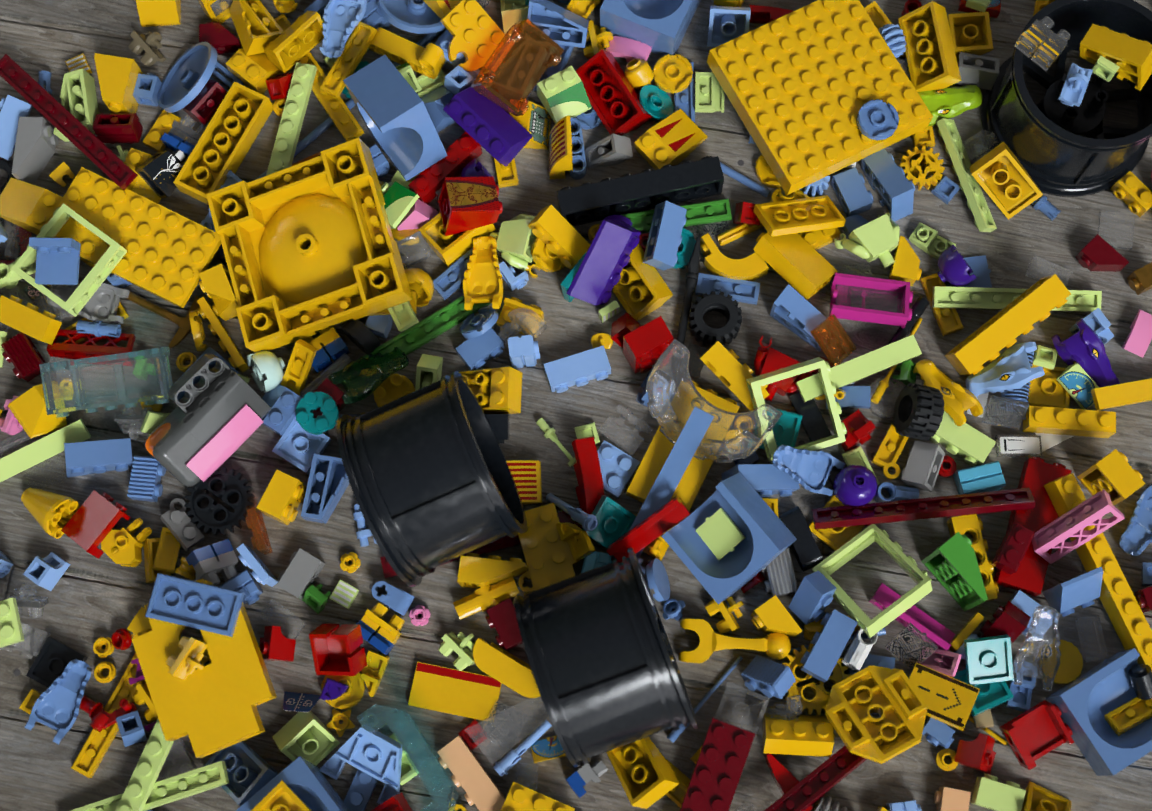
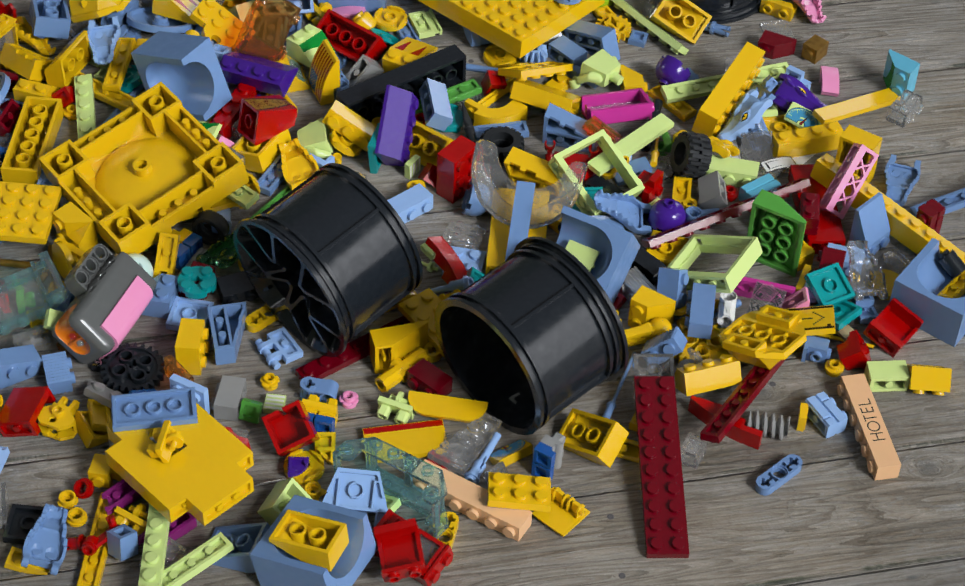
camera: 30 degrees left, 30 degrees down
(929, 240) = (643, 68): yellowish green slope -> none
(1047, 334) = (765, 88): none -> medium blue hinge

